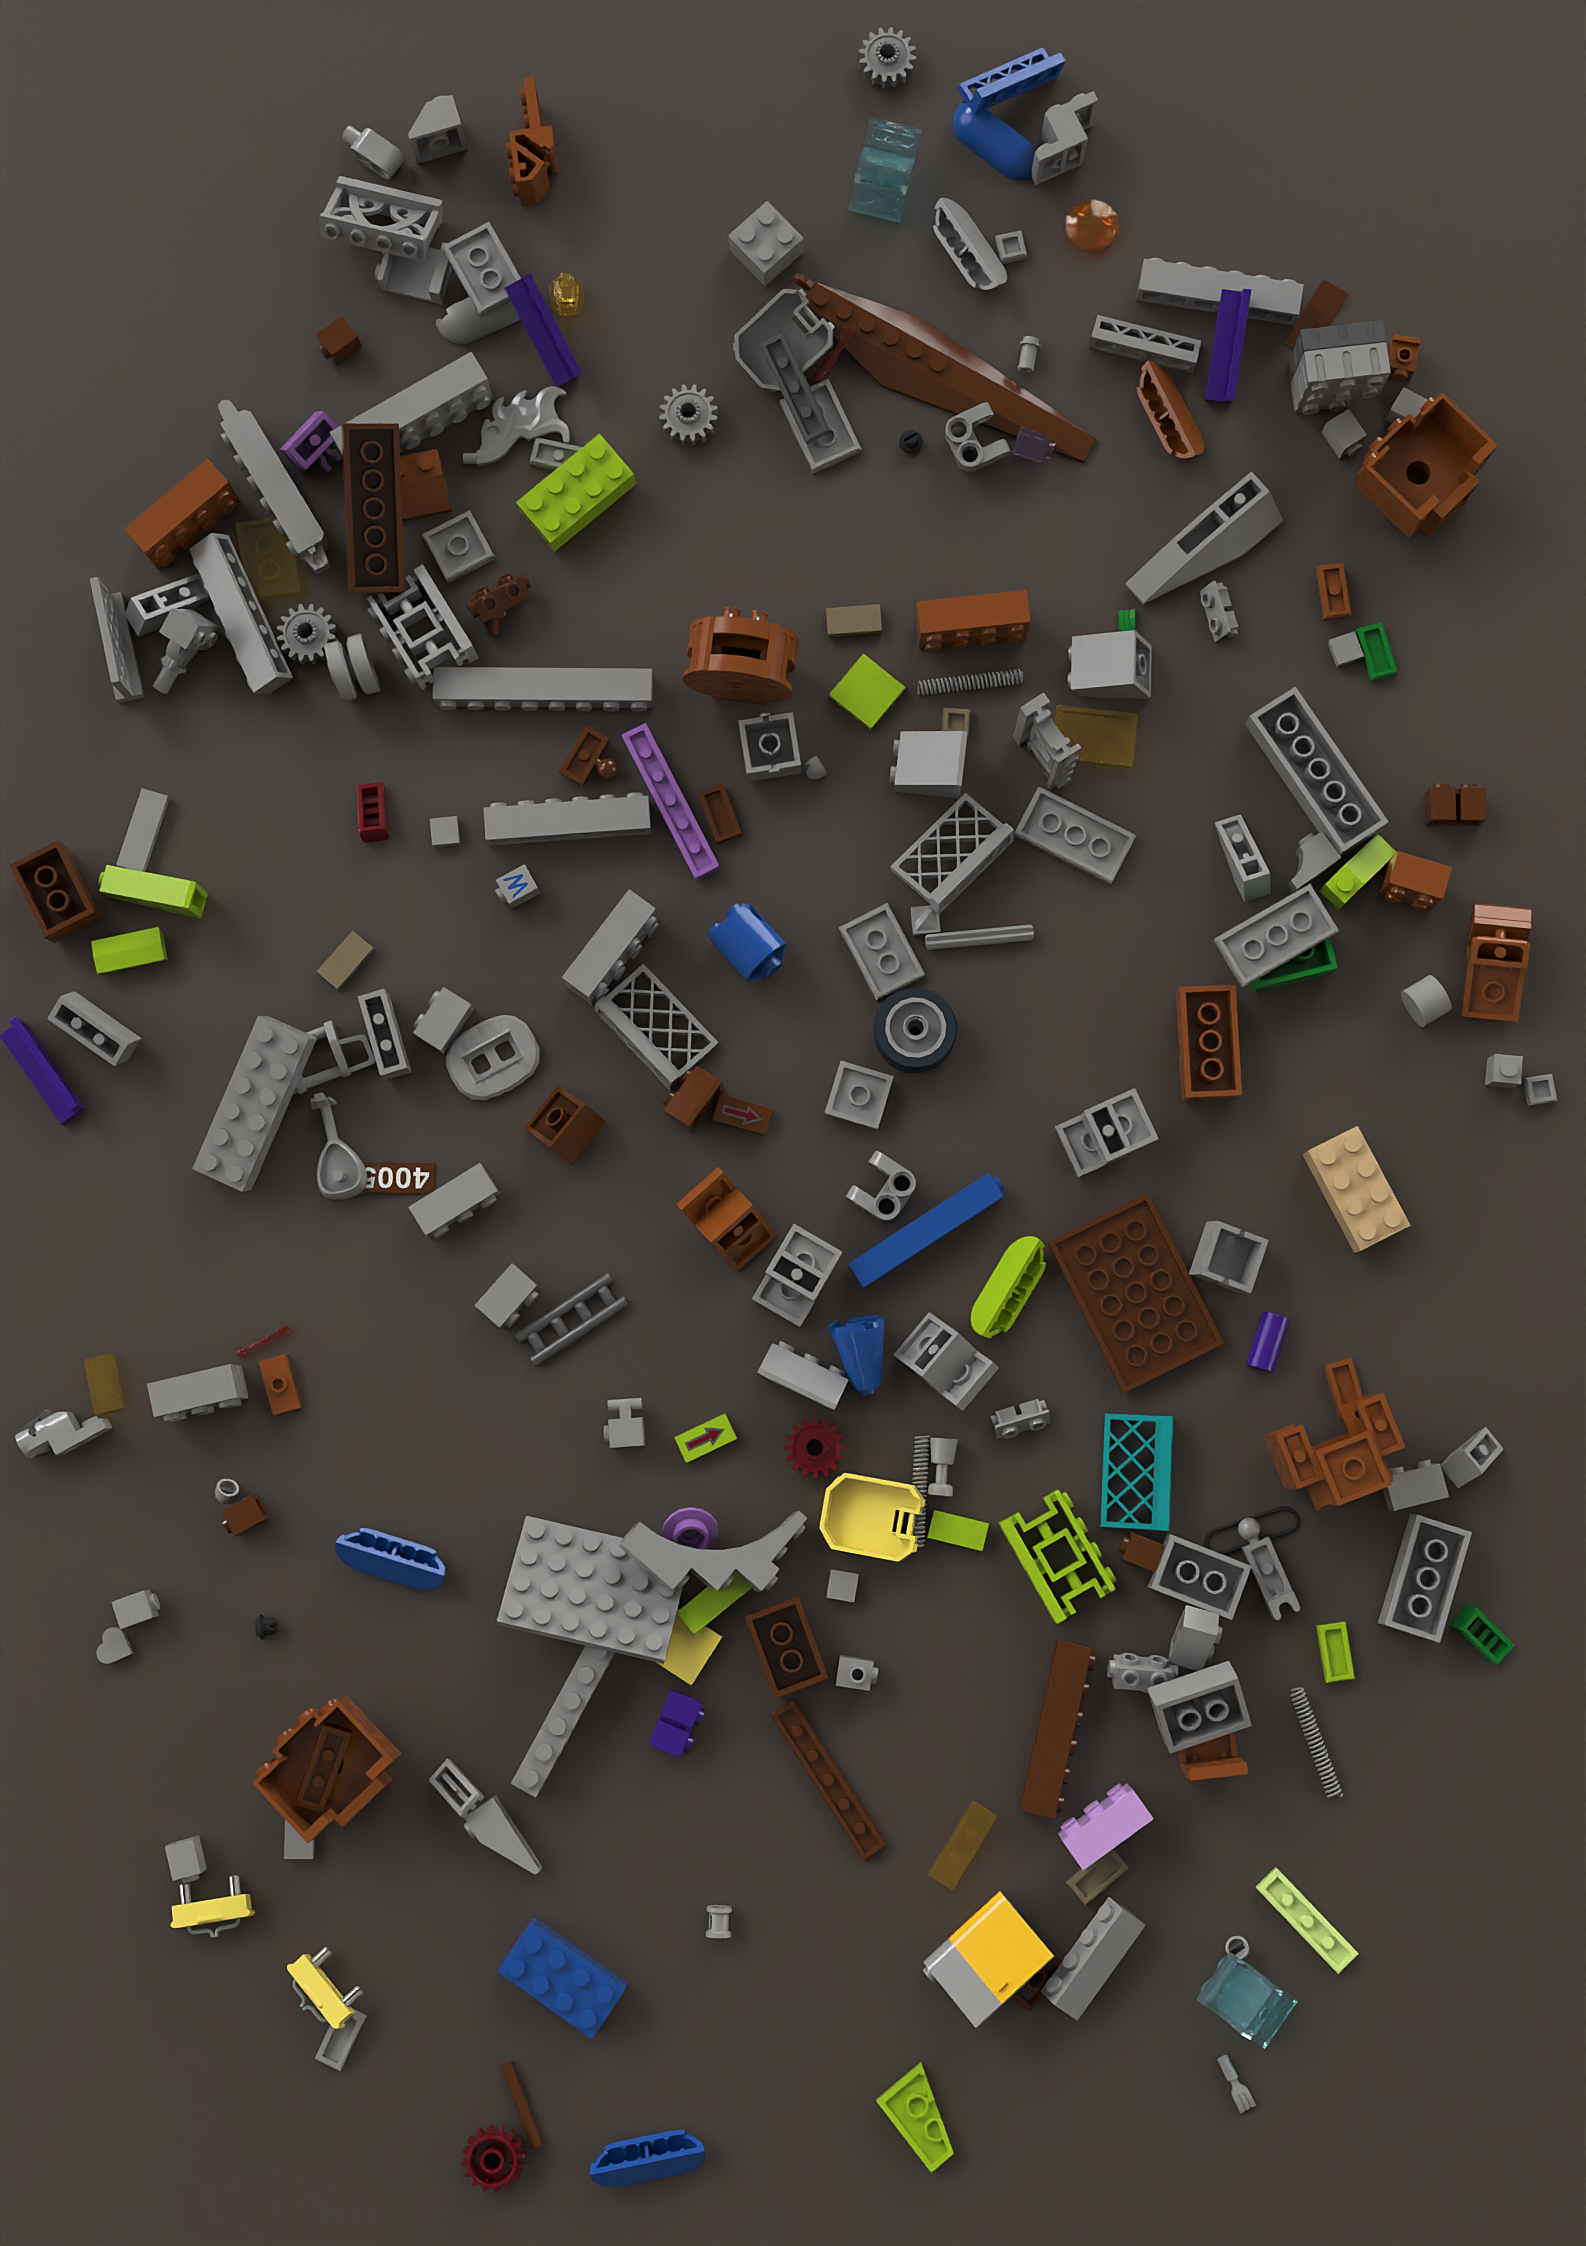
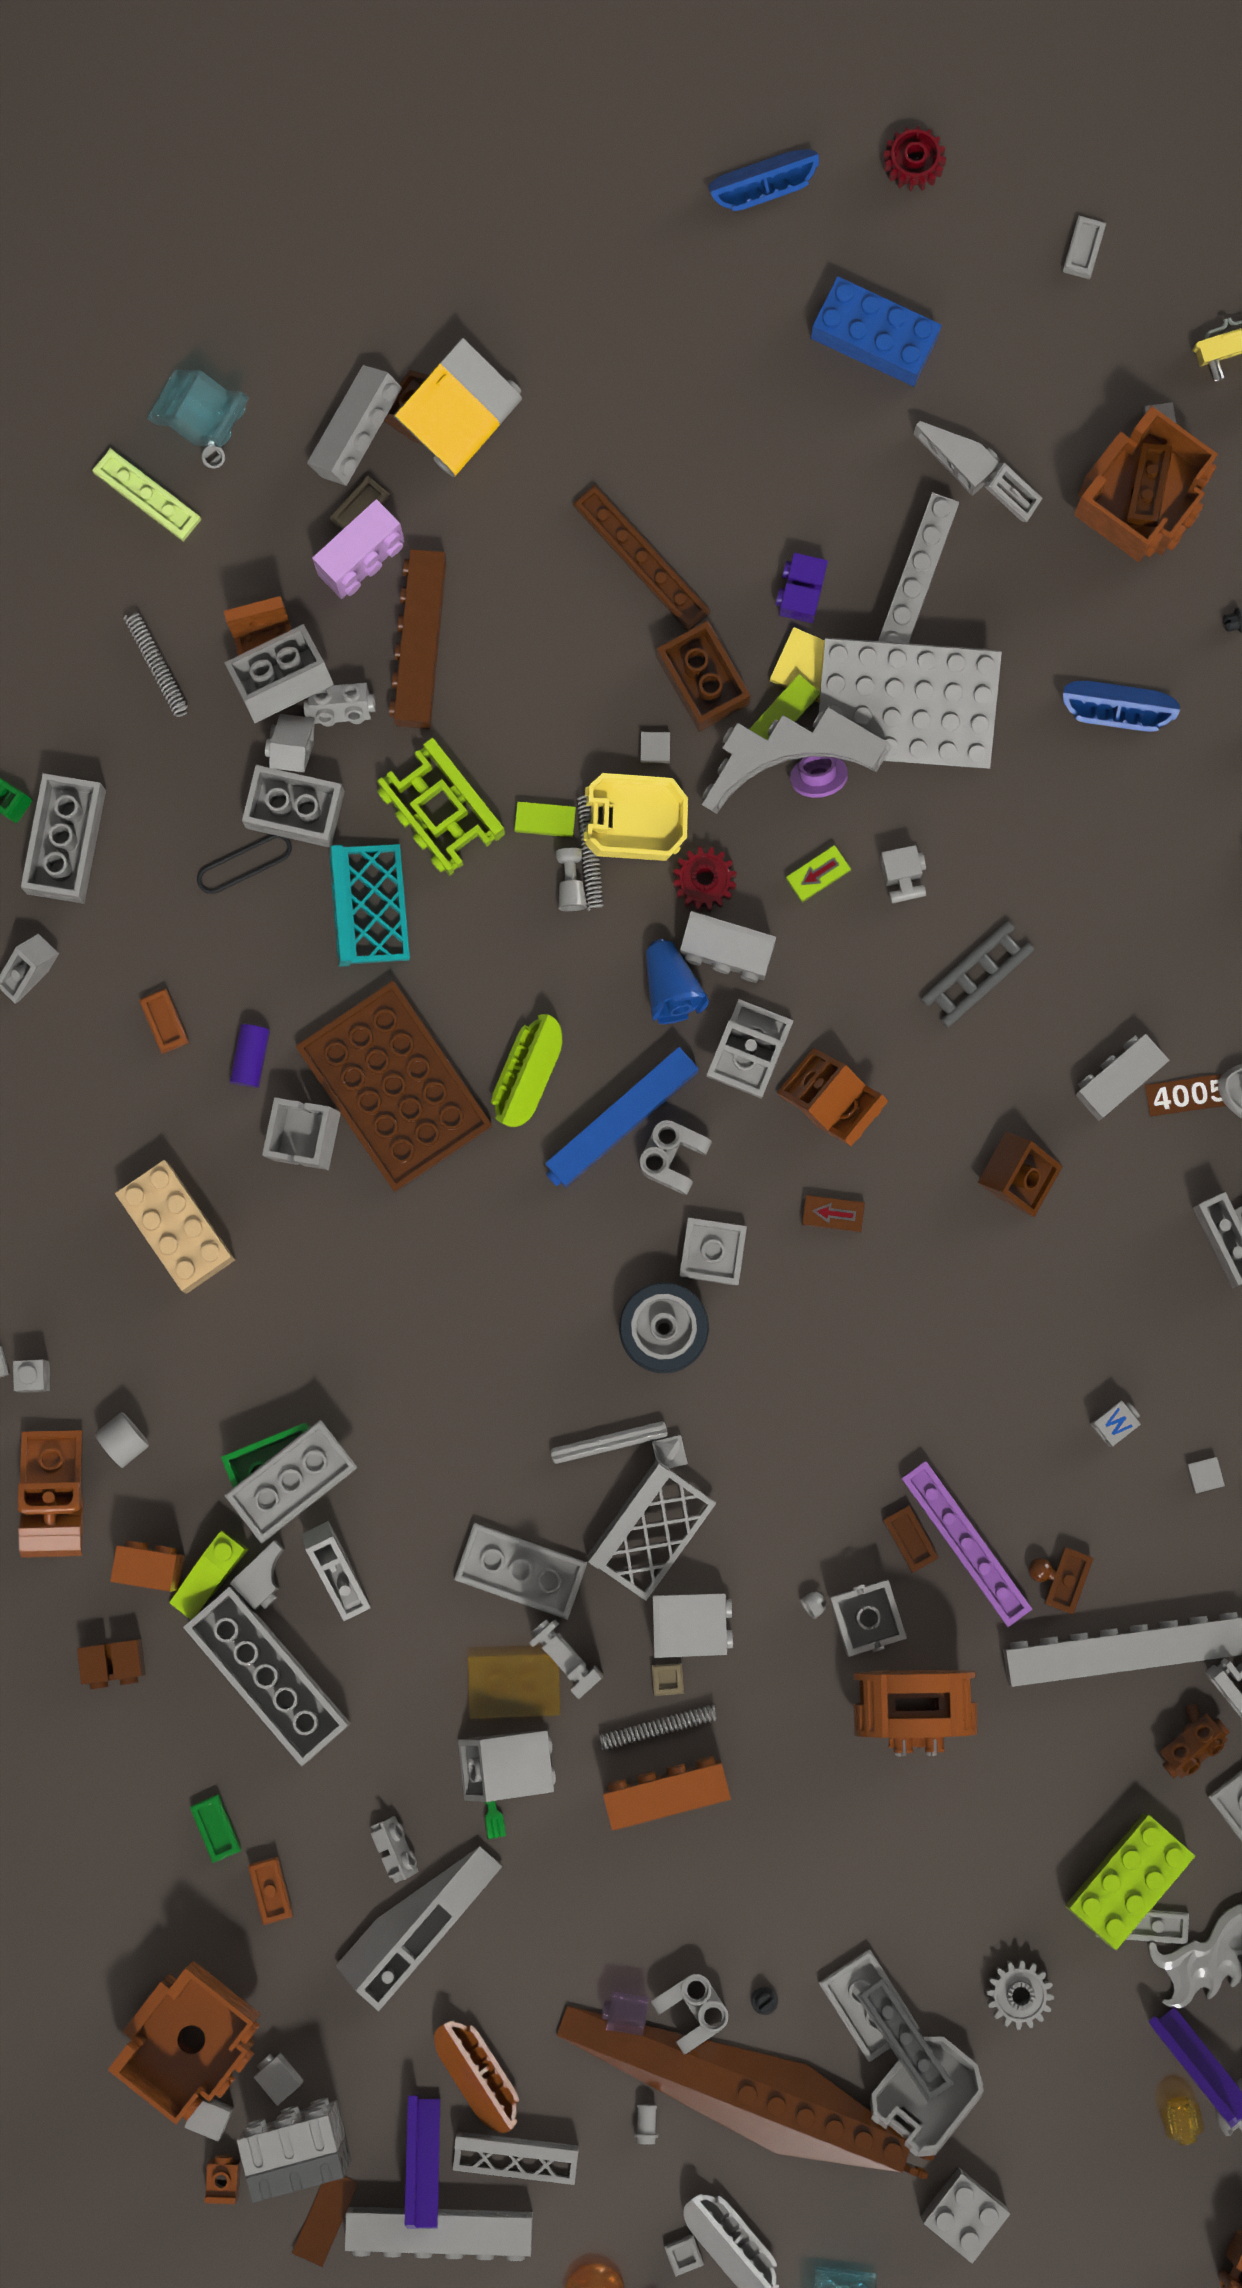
camera: 170 degrees right, 0 degrees up
(321, 1990) = (1111, 284): light yellow piece -> none
(442, 1020) = (1169, 1266): light grey brick -> none
(502, 1075) = (1095, 1219): light grey piece -> none
(508, 1297) = (1048, 986): light grey brick -> none
(522, 2104) = (895, 212): reddish brown bar -> none
(567, 820) = (1074, 1505): light grey brick -> none
(611, 948) = (1003, 1367): light grey brick -> none
(634, 1036) = (956, 1274): light grey fence -> none
(693, 1098) = (888, 1220): reddish brown slope -> none
(718, 1921) = (729, 406): light grey bush -> none
(749, 942) = (855, 1395): blue cylinder -> none
(833, 356) = (867, 2087): clear red piece -> none
(853, 620) = (797, 1780): dark tan tile -> none
(856, 1673) = (628, 662): light grey brick -> none
(867, 692) = (770, 1700): lime tile -> none
(881, 952) = (711, 1411): light grey tile -> none
(916, 2116) = (507, 255): lime wing -> none
(946, 1361) = (582, 983): light grey bracket -> none
(962, 1845) = (498, 515): clear yellow tile -> none
(1009, 1424) = (486, 942): light grey hinge -> none
(1106, 1132) = (445, 1245): light grey bracket -> none
(1141, 1551) = (355, 824): reddish brown brick -> none
(1208, 1043) = (348, 1358): dark orange brick -> none
(1239, 2091) = (194, 326): light grey piece -> none
(1266, 1569) = (225, 826): light grey plate -> none
(1335, 1652) = (146, 756): lime tile -> none
(1344, 1465) = (160, 931): dark orange piece -> none
(1345, 649) = (249, 1826): light grey tile -> none
(1415, 1486) = (83, 930): light grey brick -> none

